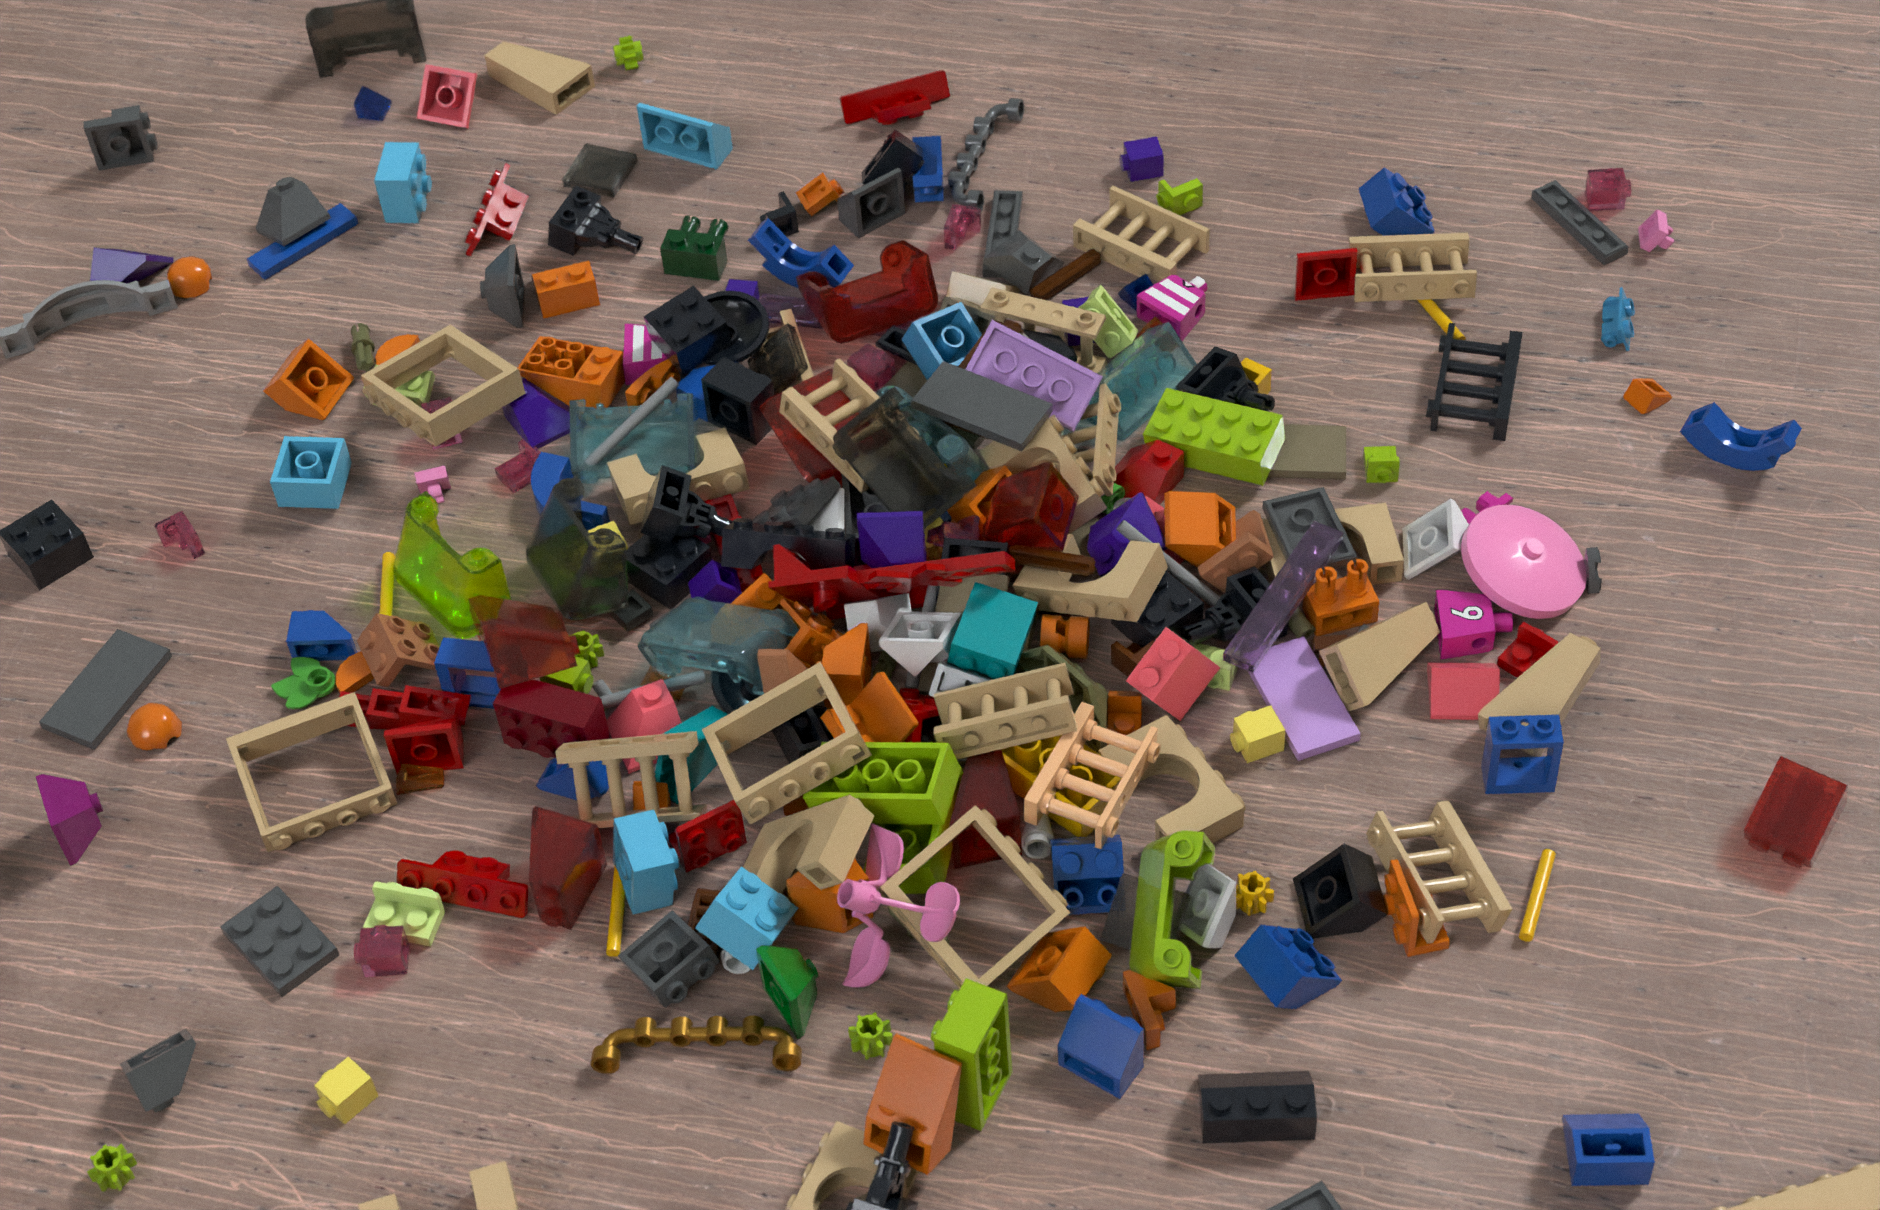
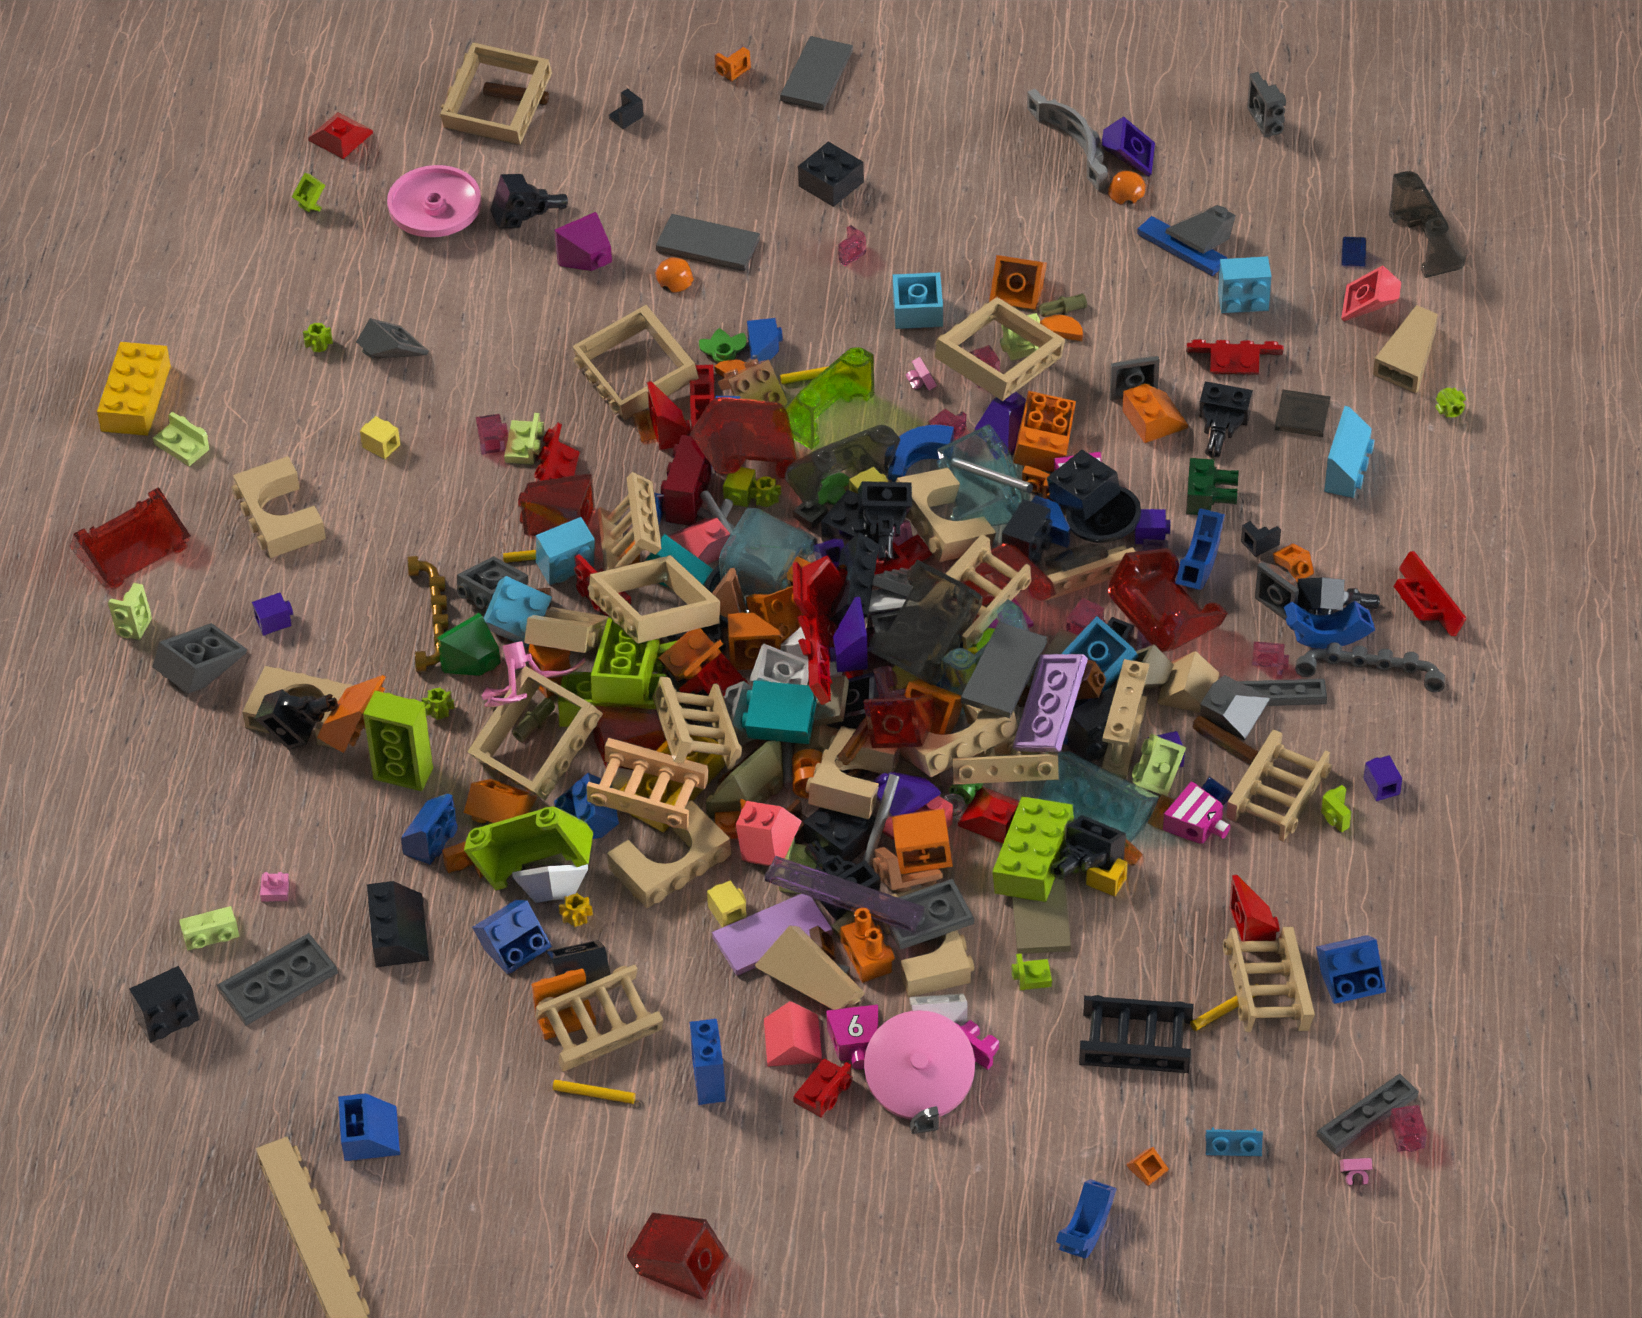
camera: 80 degrees right, 0 degrees up
(279, 941) = (500, 381): dark grey plate -> none
(1548, 685) = (771, 1078): tan slope -> none

